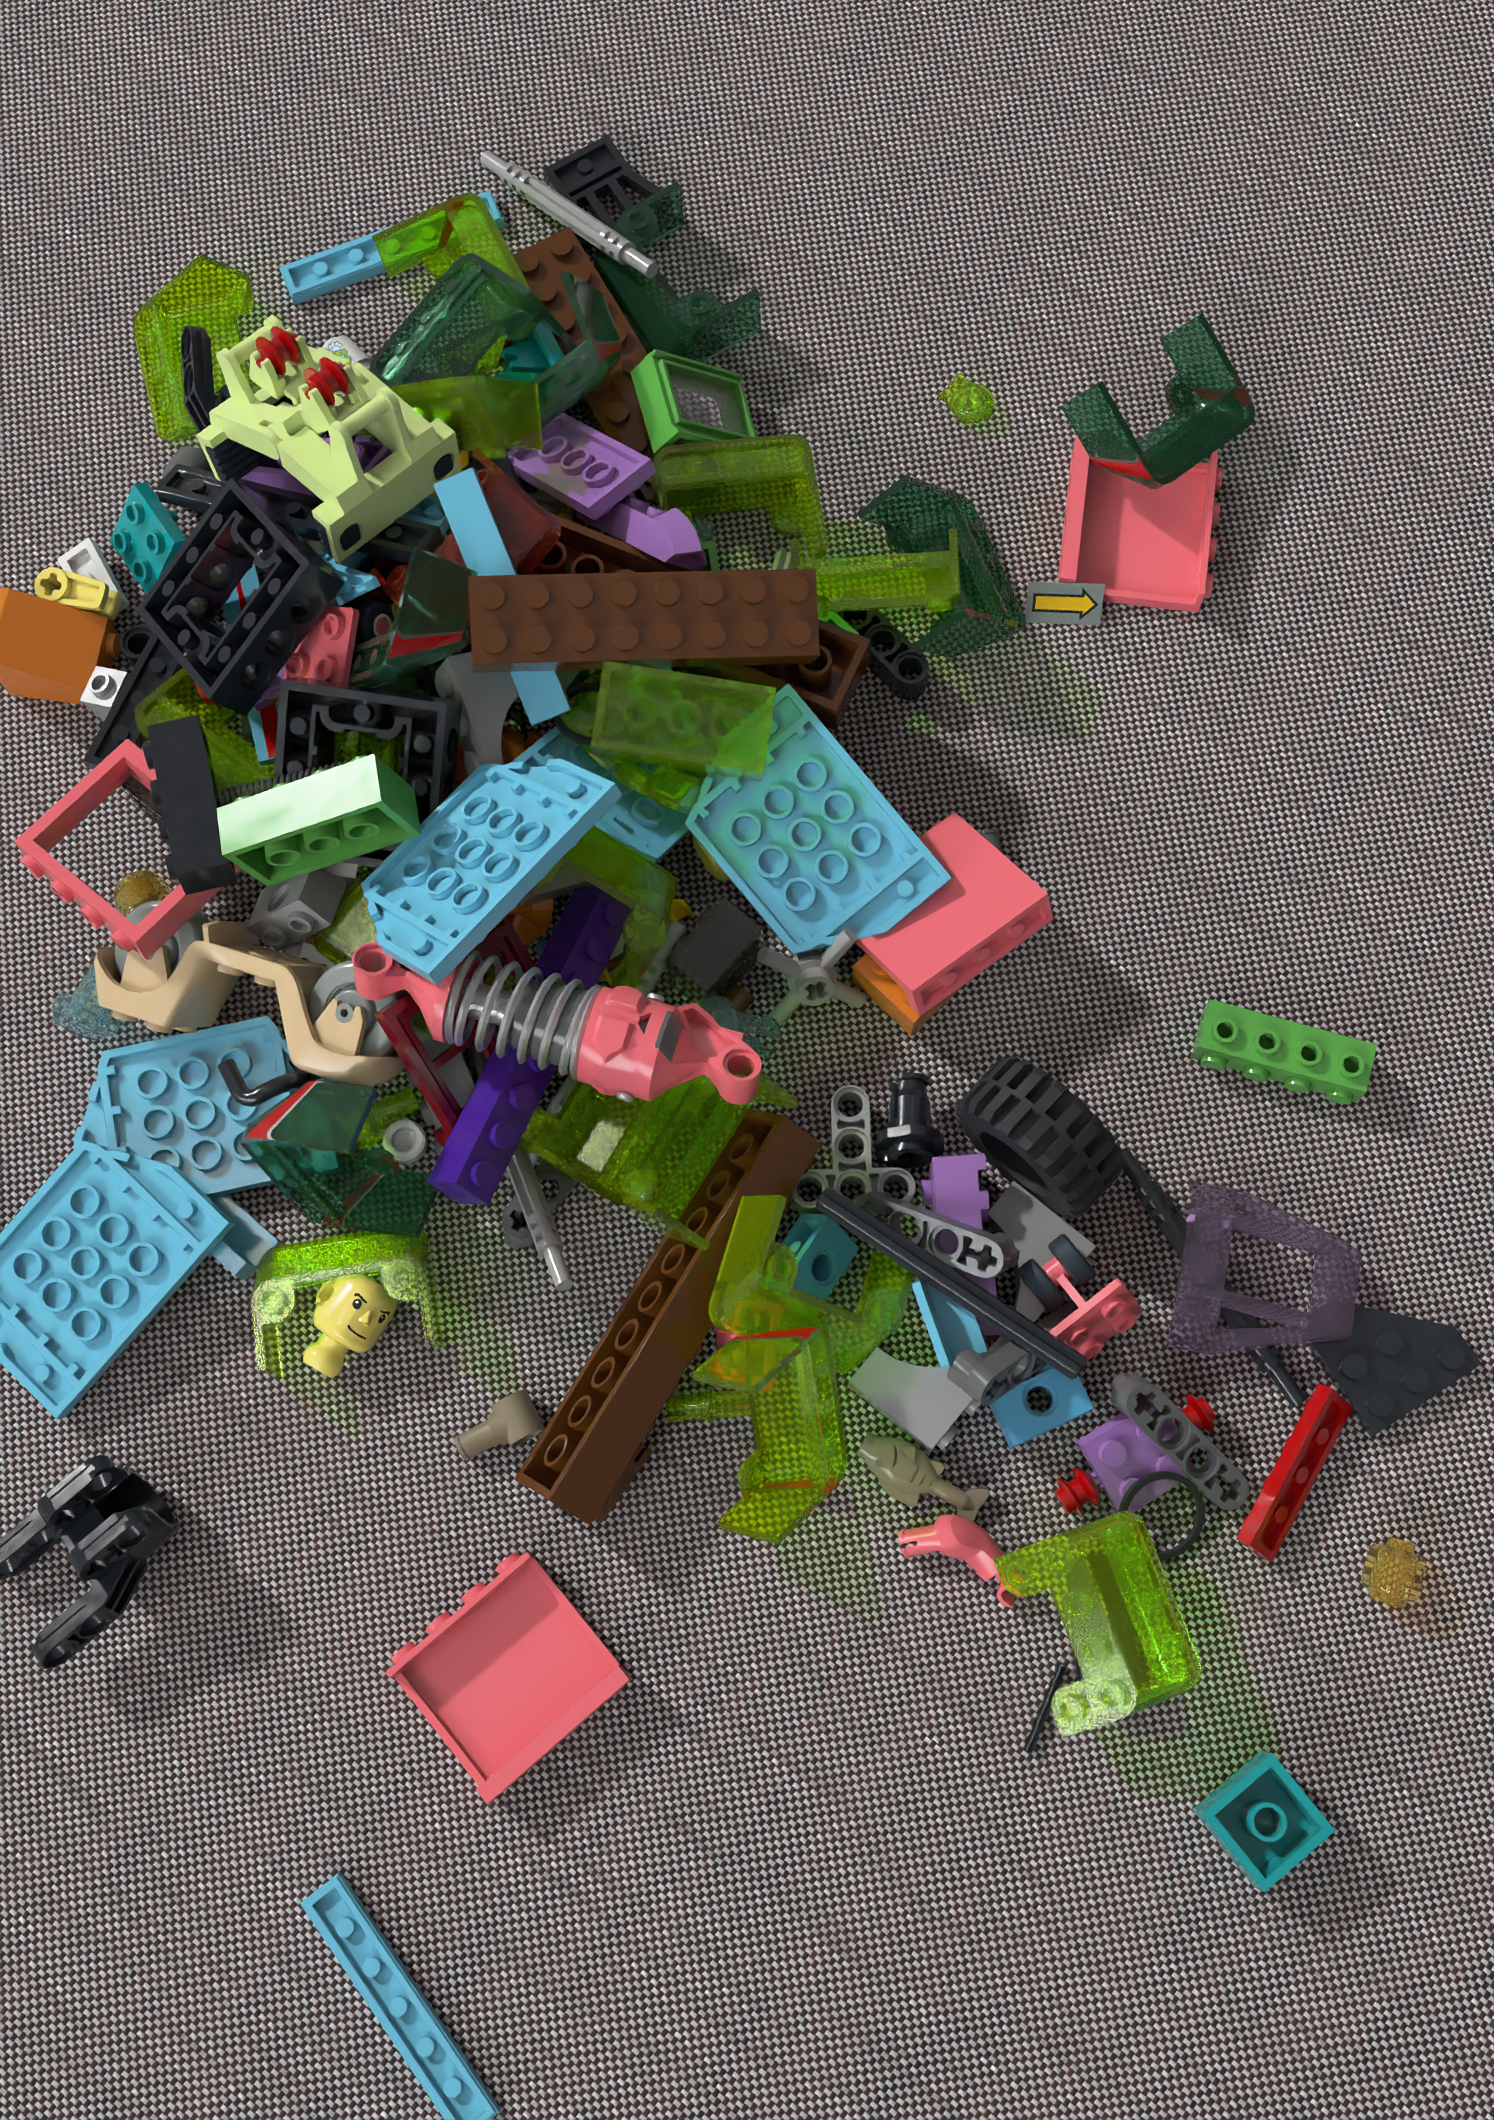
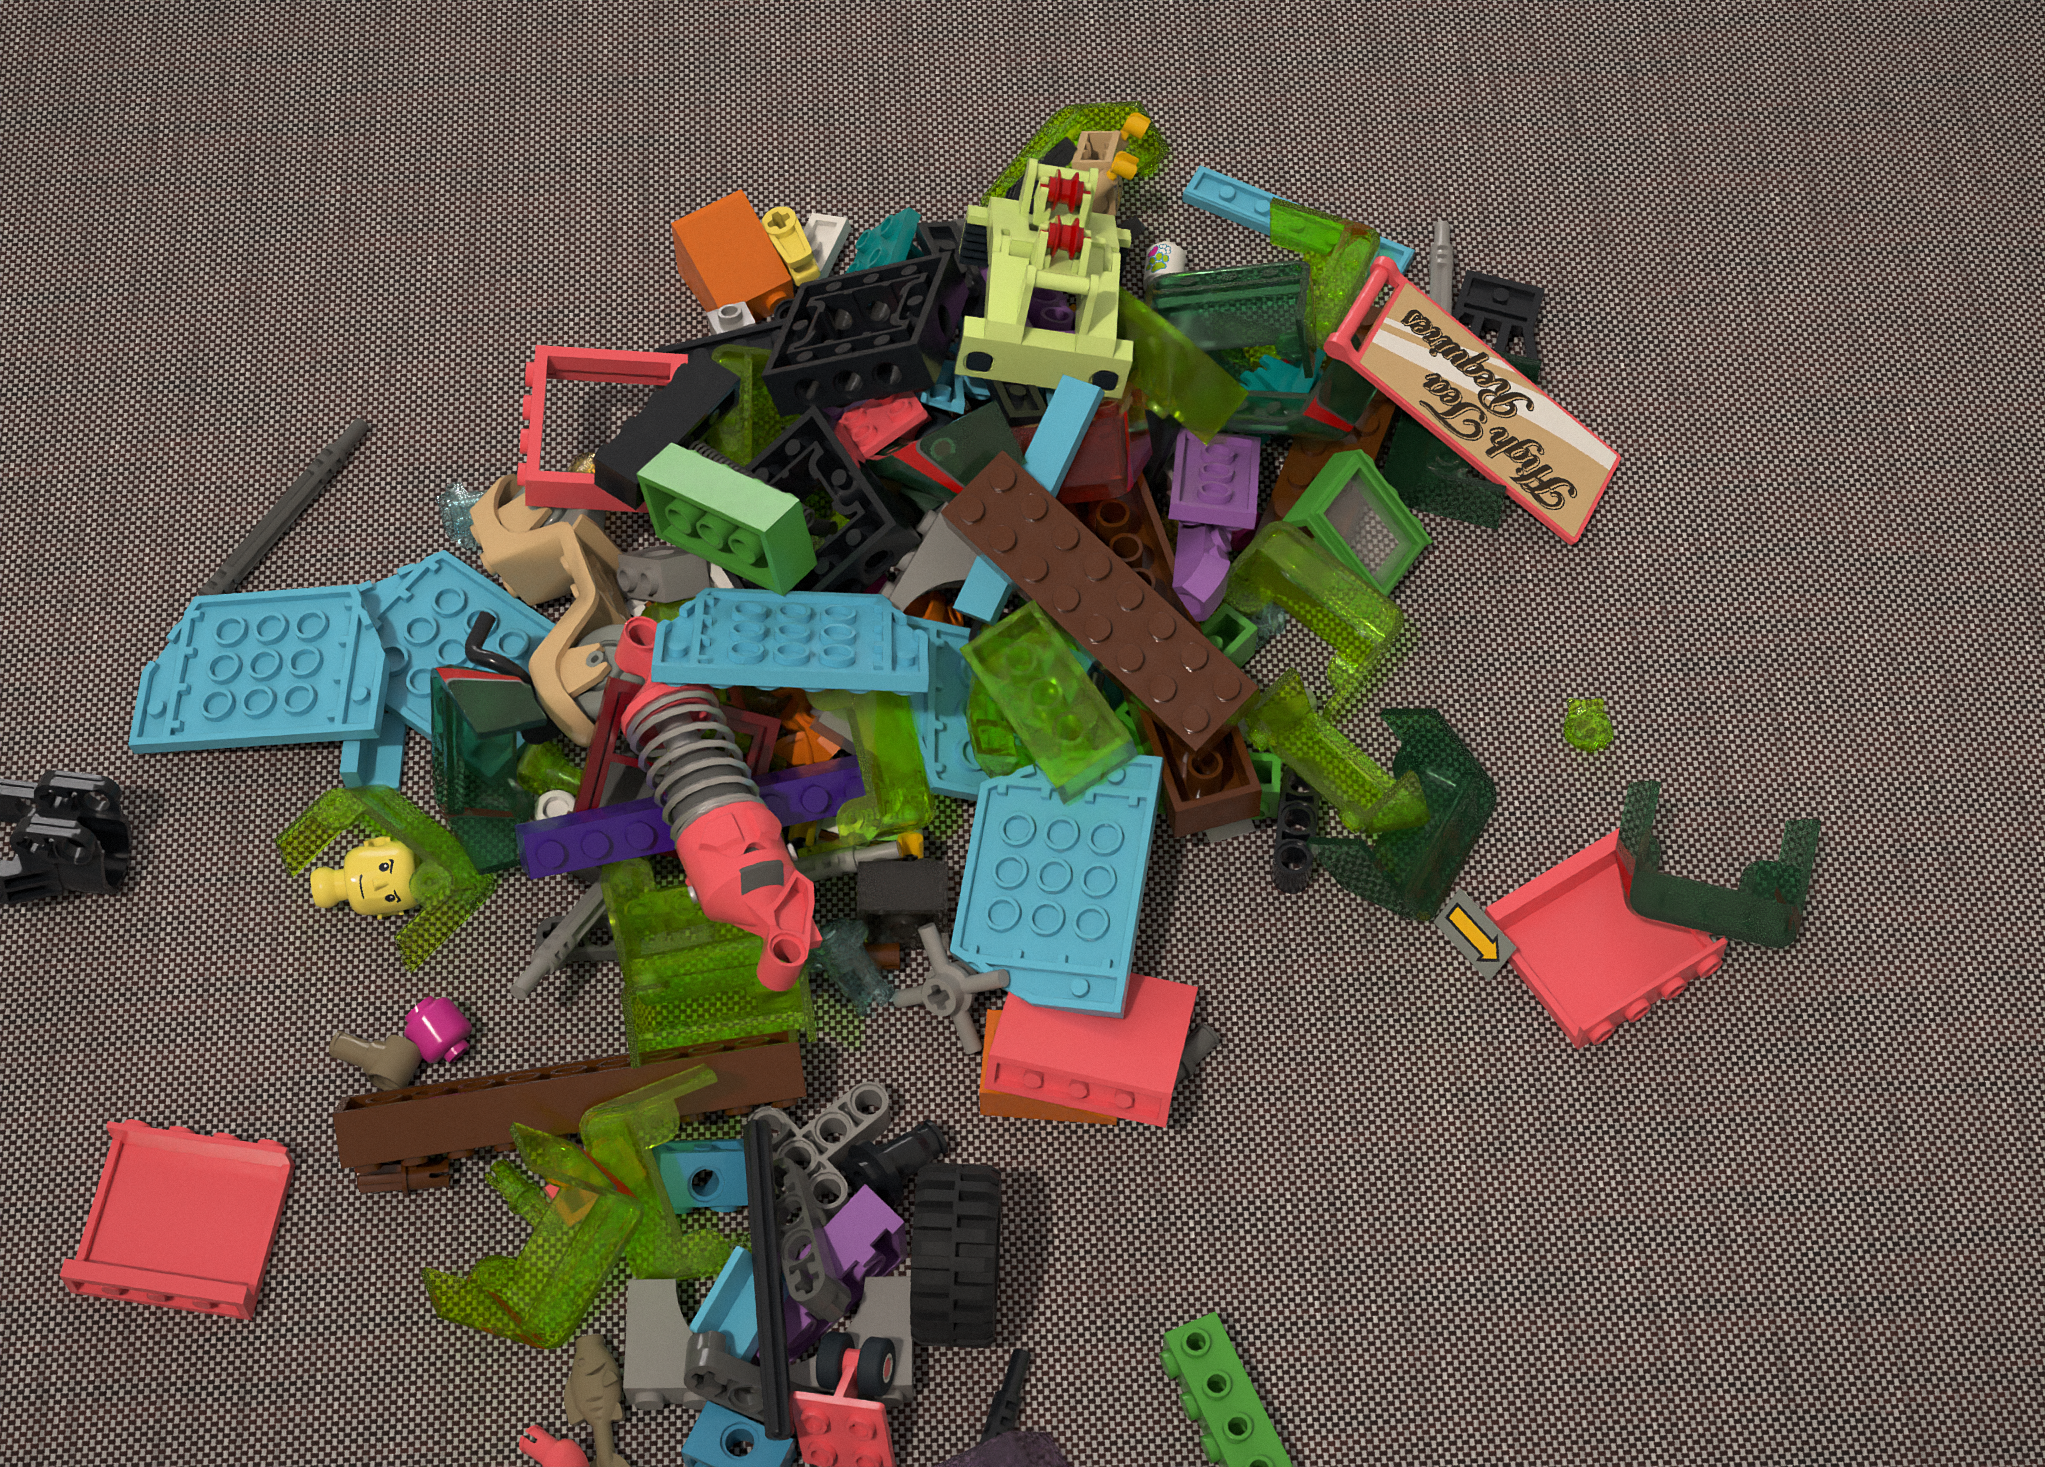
camera: 45 degrees right, 15 degrees down
(221, 319) = (1106, 153): none -> tan torso
(518, 1365) = (438, 1029): none -> dark pink head
(670, 248) = (1476, 403): none -> flag

